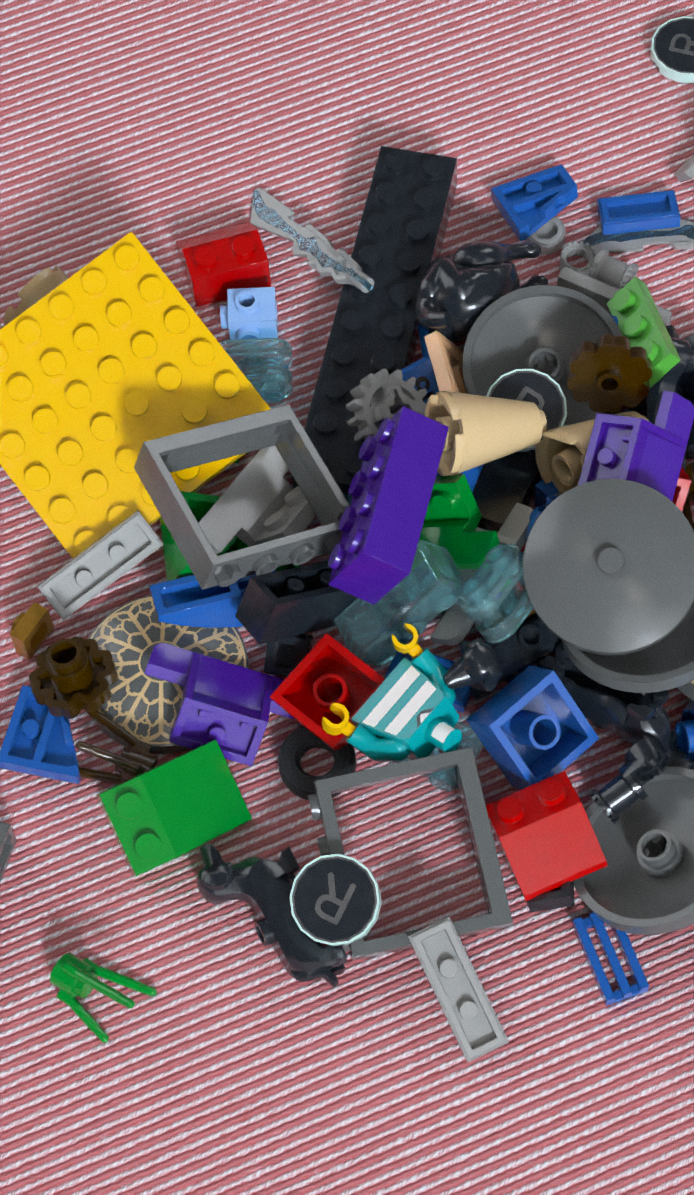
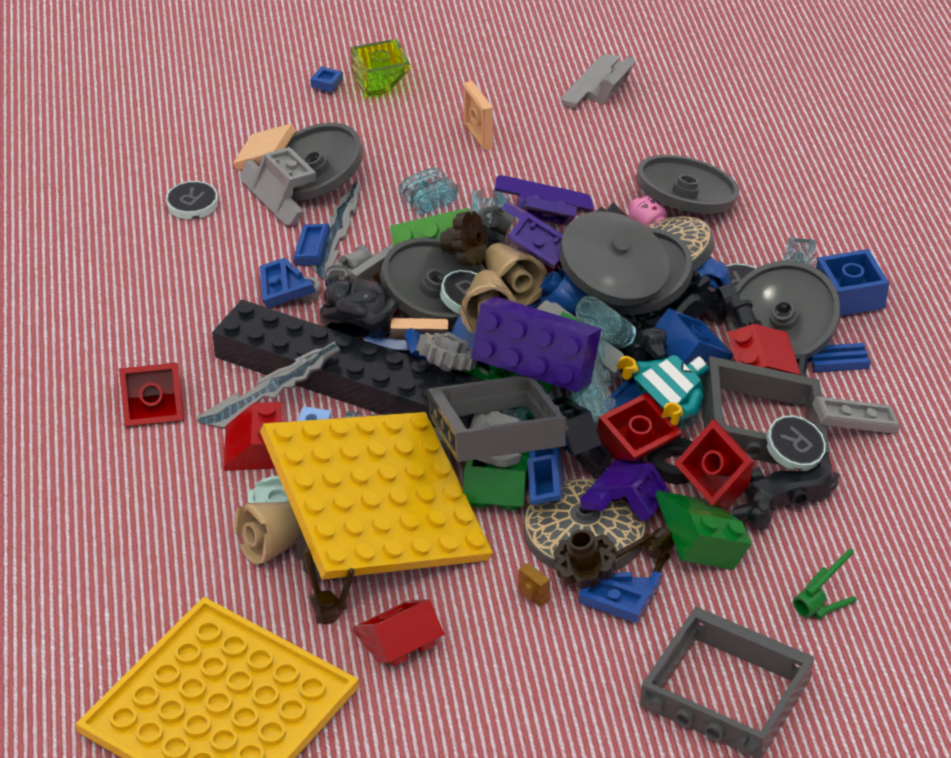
camera: 80 degrees left, 20 degrees down
(100, 565) = (494, 536): light grey tile -> none
(260, 801) = (716, 466): none -> red slope
(275, 123) = (151, 394): none -> red slope

